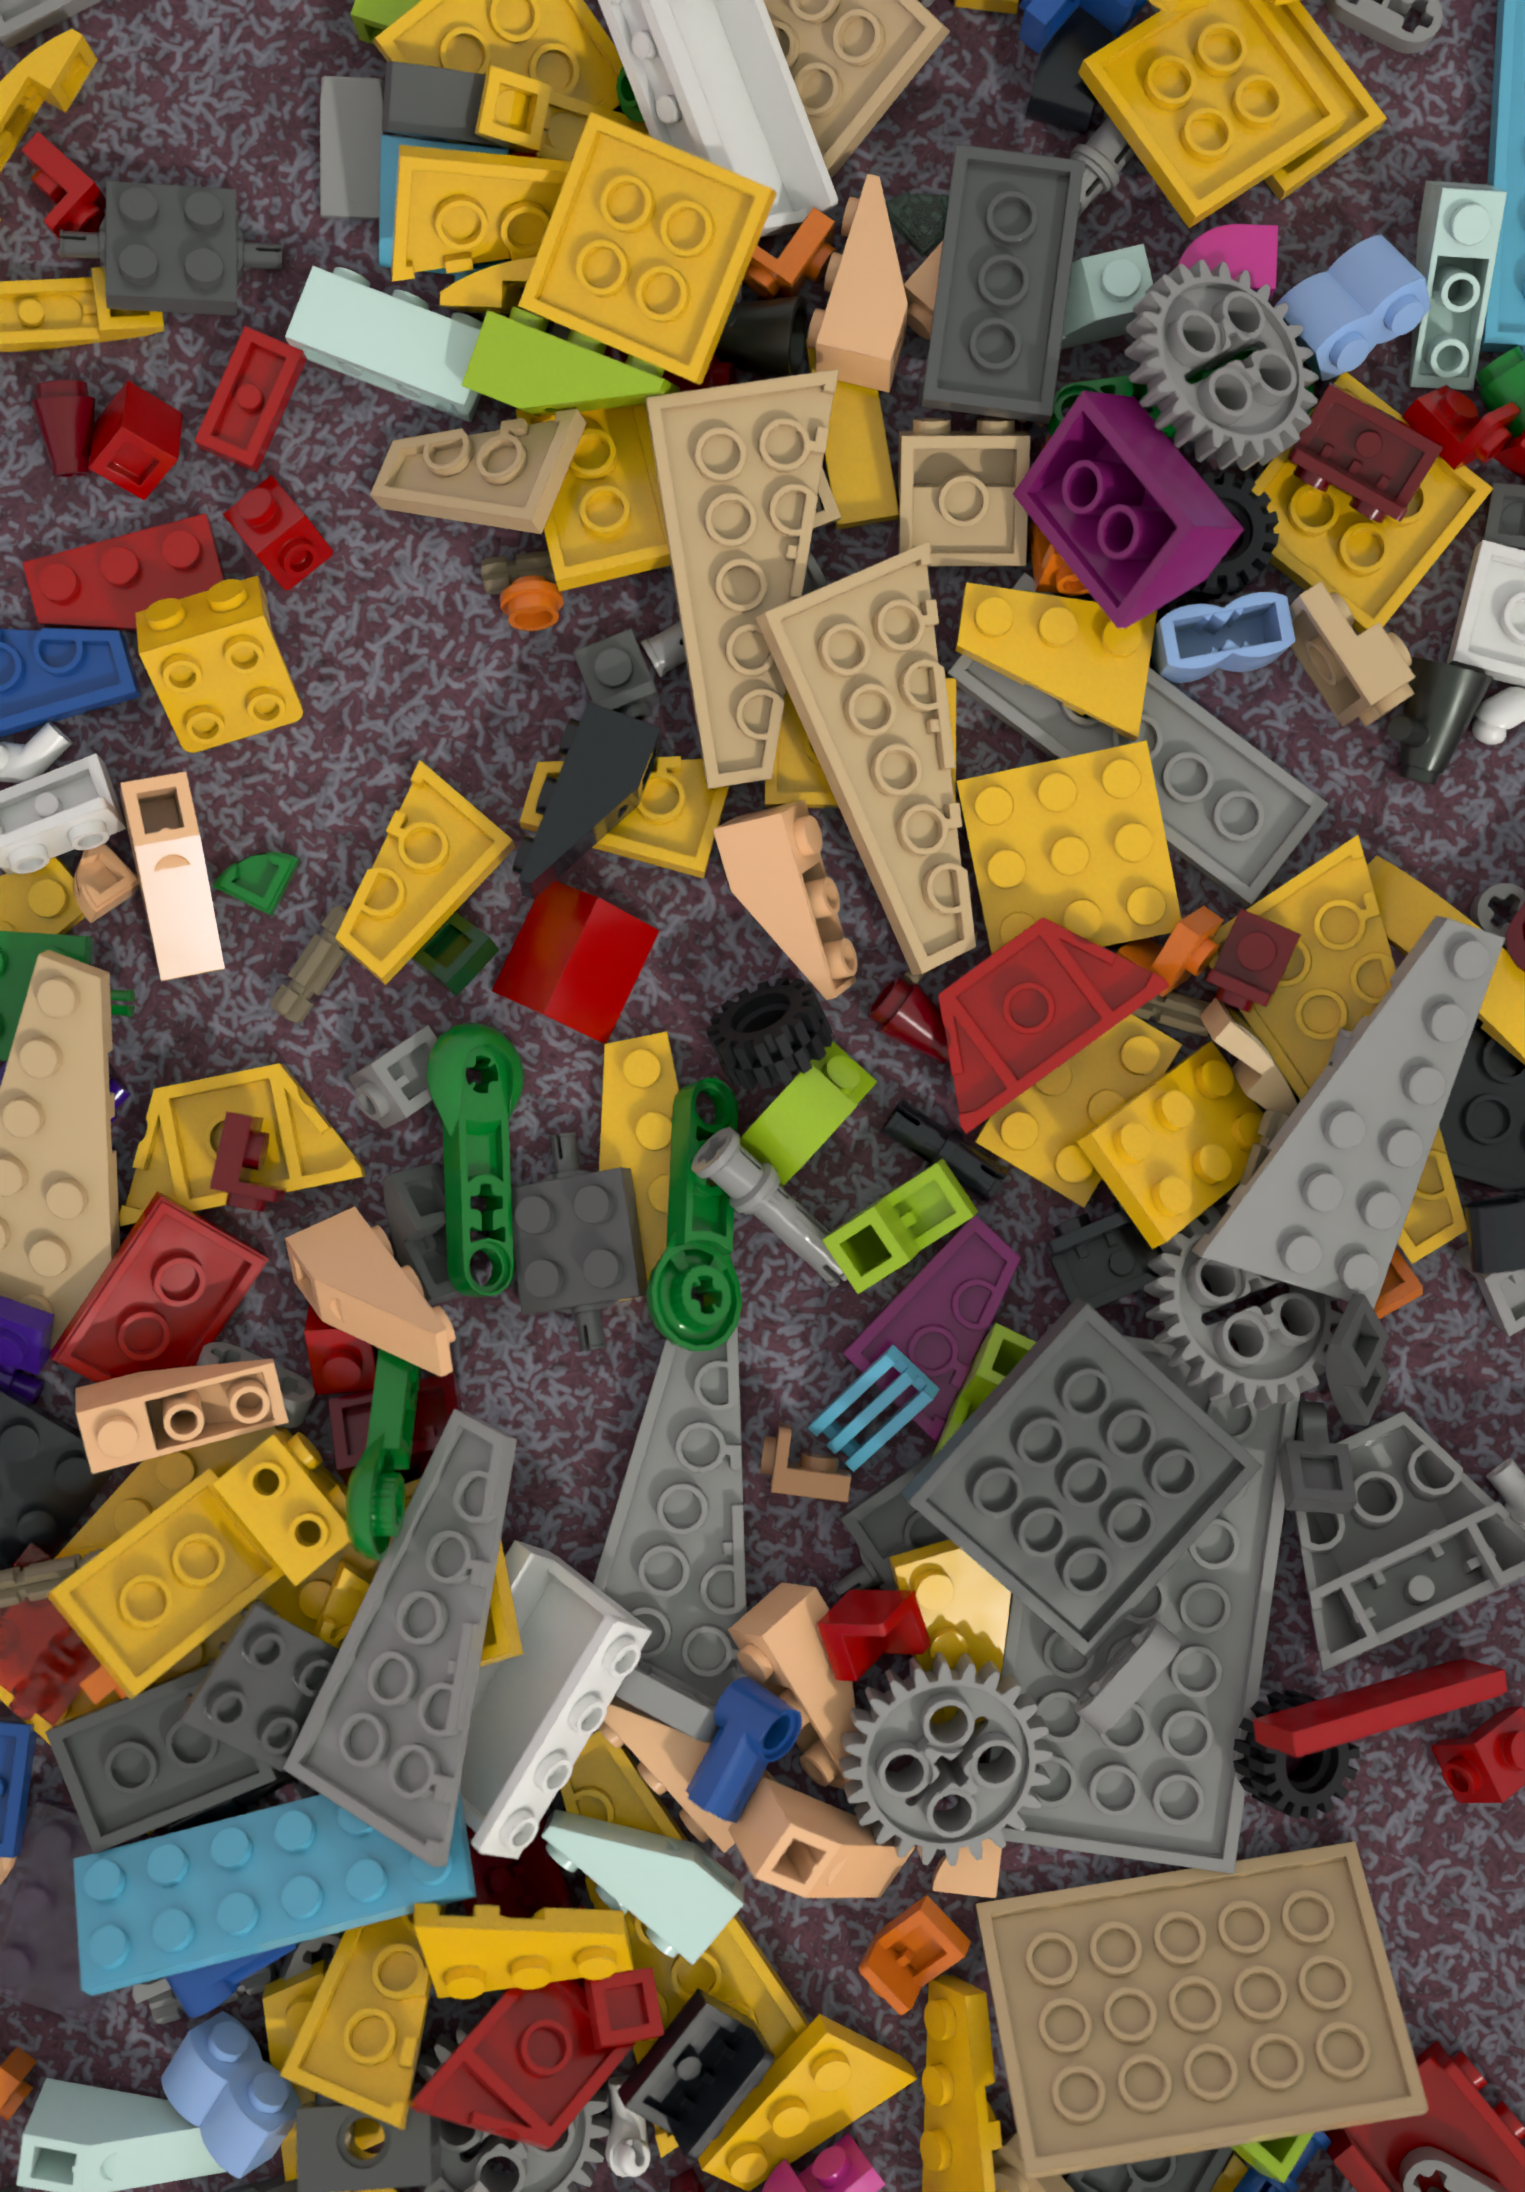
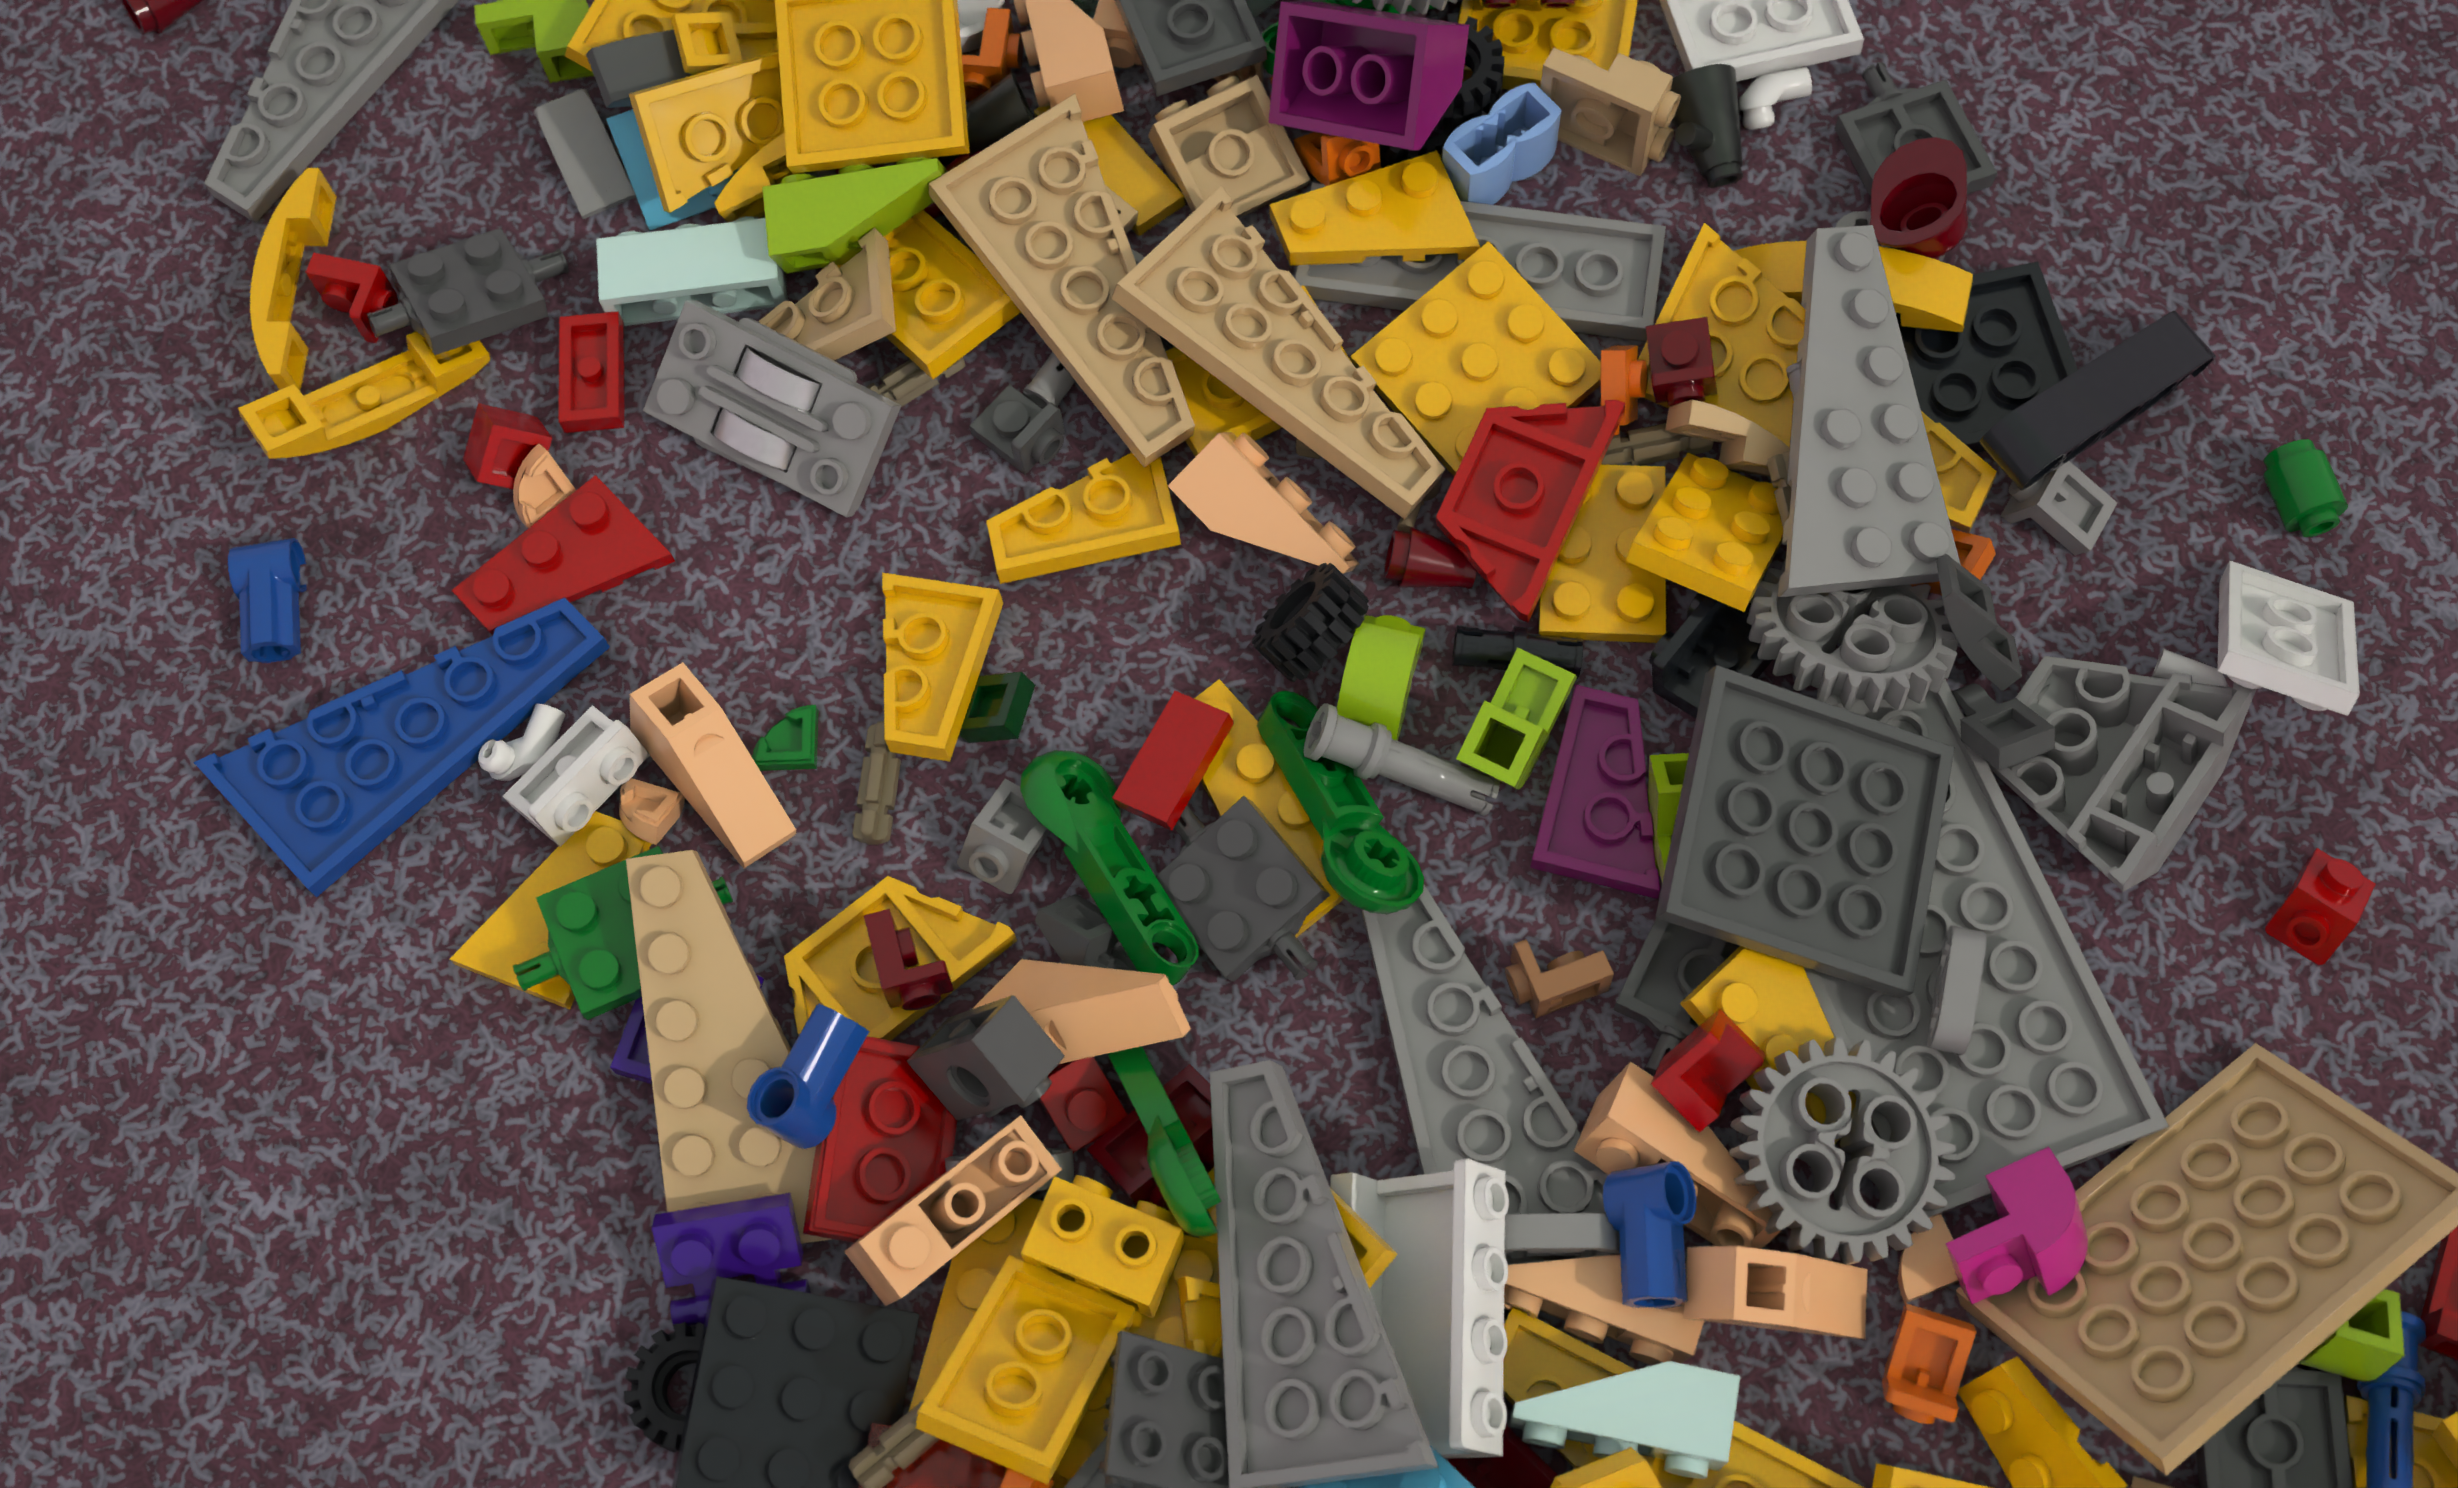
camera: 20 degrees left, 20 degrees down
(66, 424) = (439, 465): dark red cone -> none
(108, 1234) = (798, 1096): none -> blue piece
(148, 500) = (539, 486): none -> light nougat tile
(217, 664) = (669, 580): yellow bracket -> none
(272, 1293) = (987, 1060): none -> dark grey brick
(278, 533) = (667, 457): red bracket -> none
(396, 536) = (772, 406): none -> light grey piece
(531, 603) = (919, 402): orange plate -> none
(576, 960) = (1105, 661): red slope -> none
(579, 1095) = (1173, 760): none -> red tile
(596, 789) = (1051, 508): black slope -> none
(843, 1437) = (1574, 940): medium azure tile -> none
(1068, 1914) = (2035, 1235): none -> dark pink brick
(1312, 1782) = (2171, 968): black tyre -> none
(1379, 1707) = (2192, 892): red tile -> none

